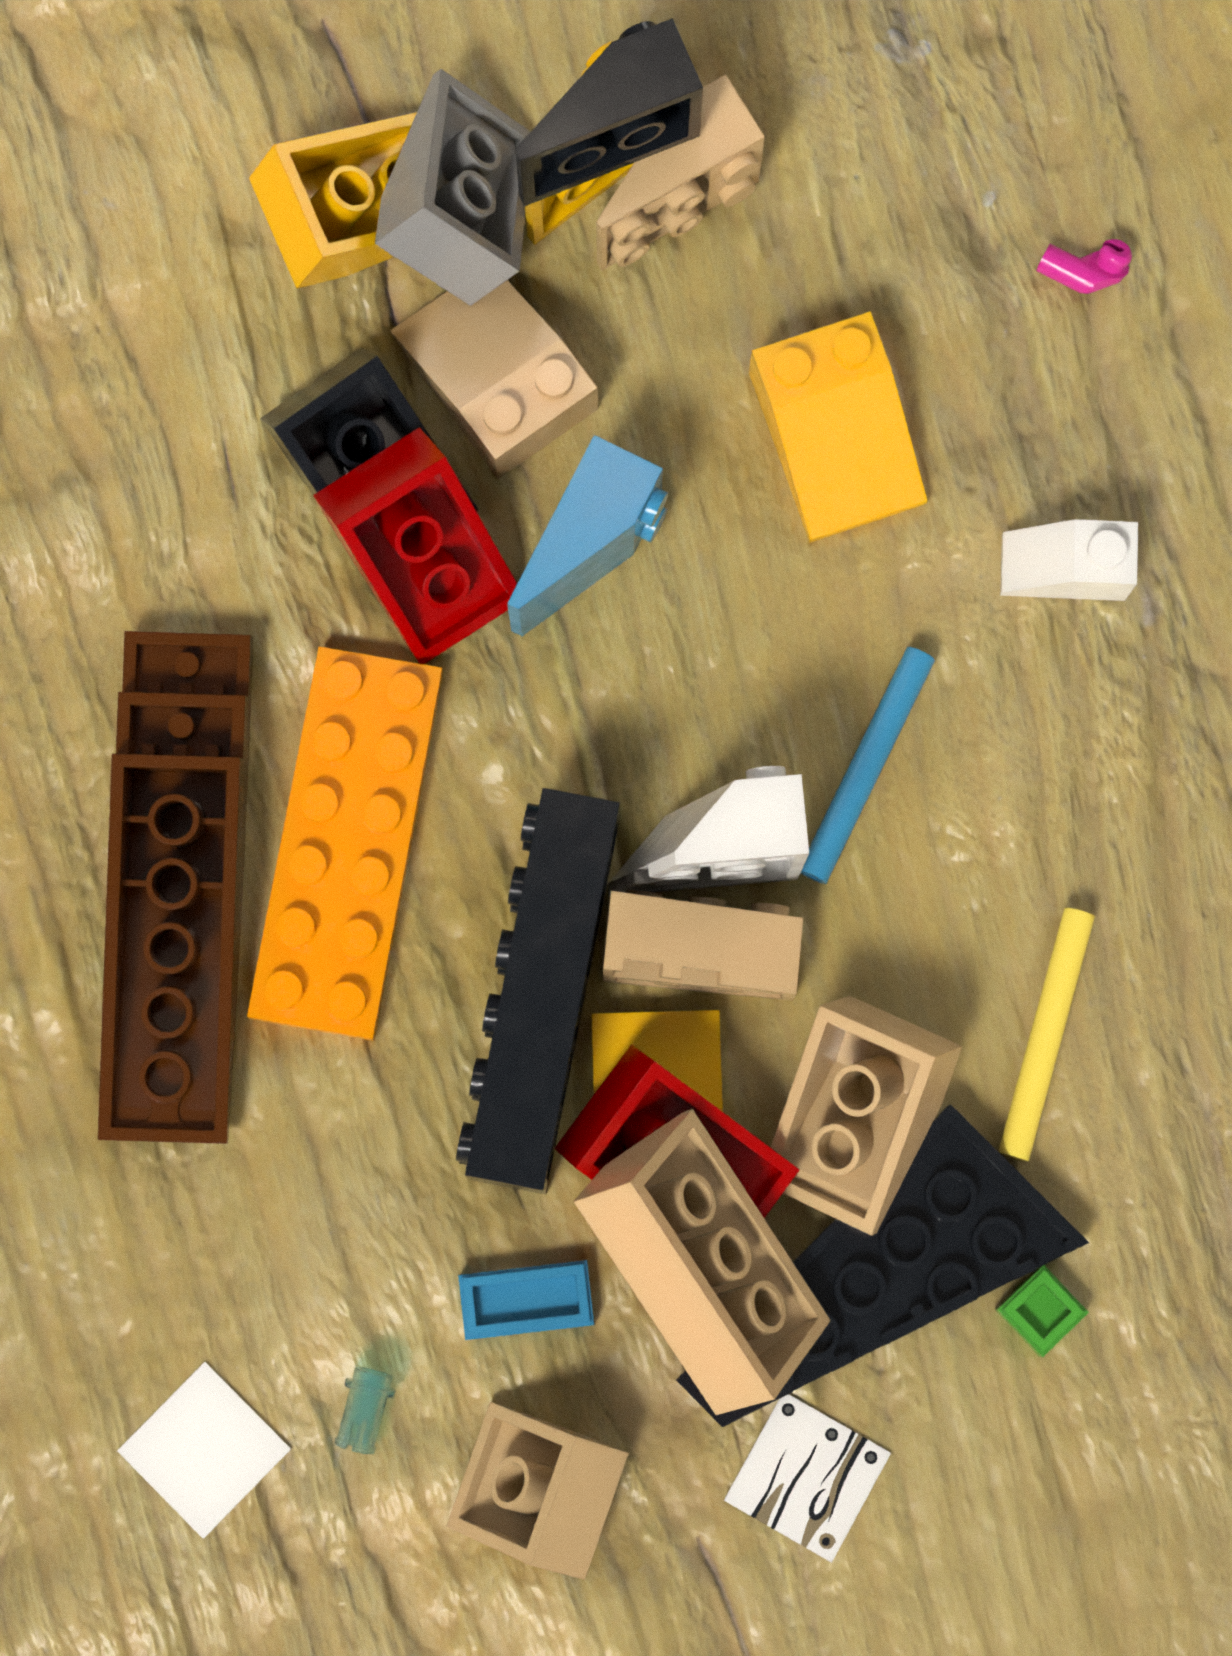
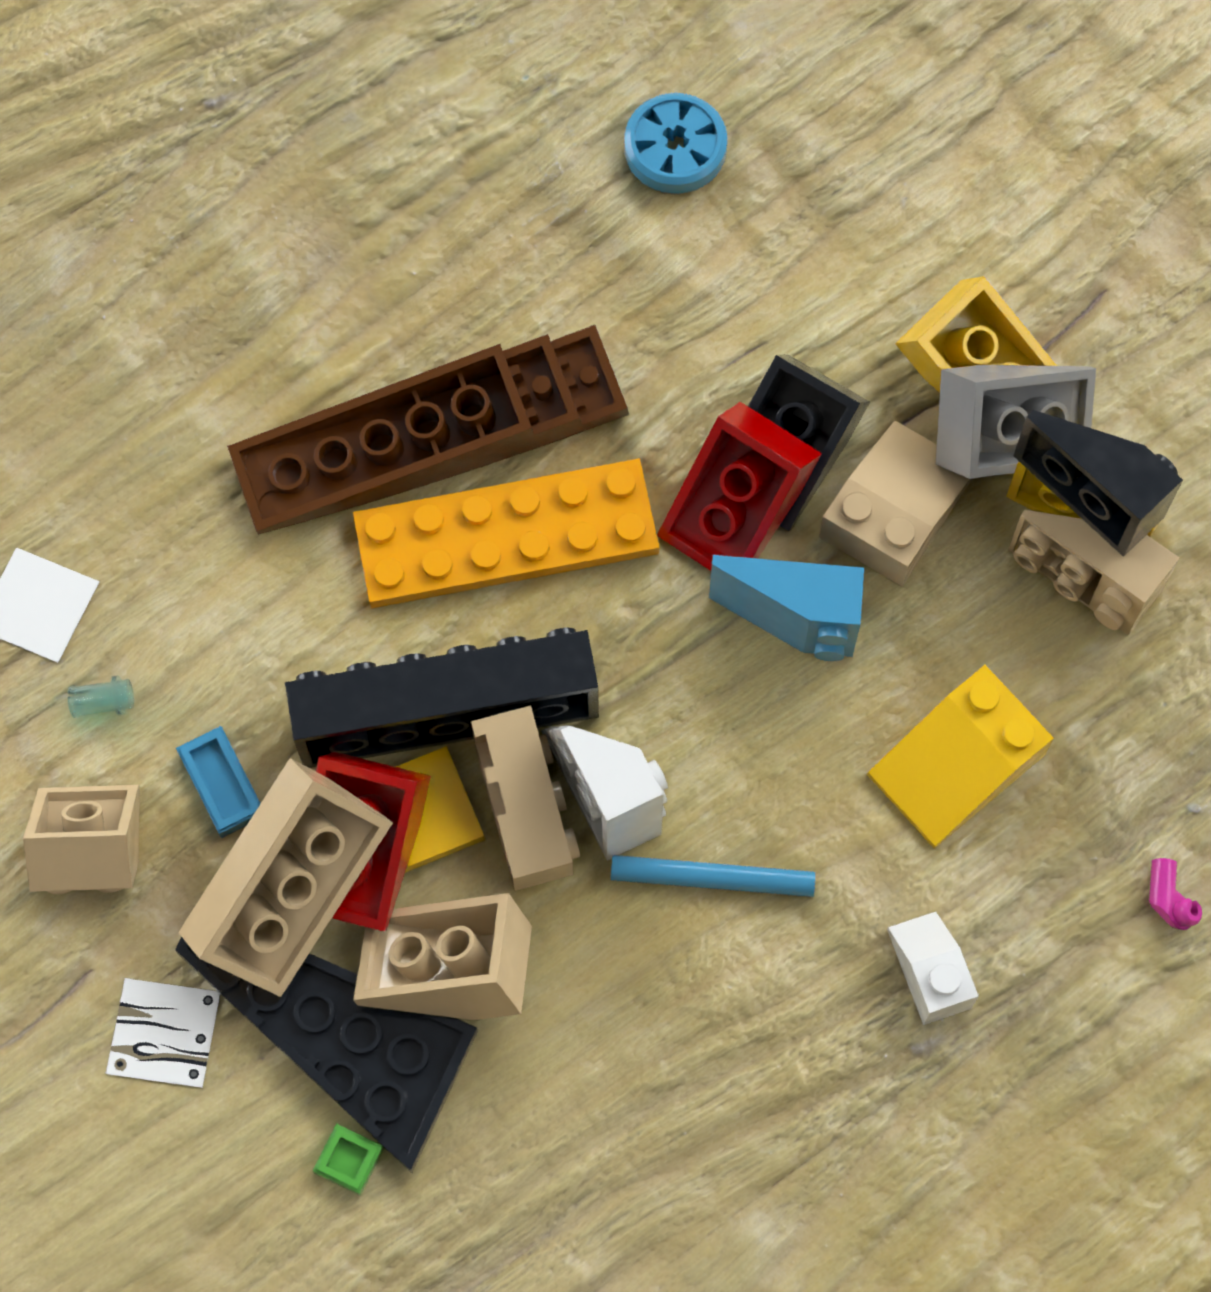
camera: 70 degrees right, 10 degrees down
(1046, 1034) = (560, 1085): light yellow piece -> none

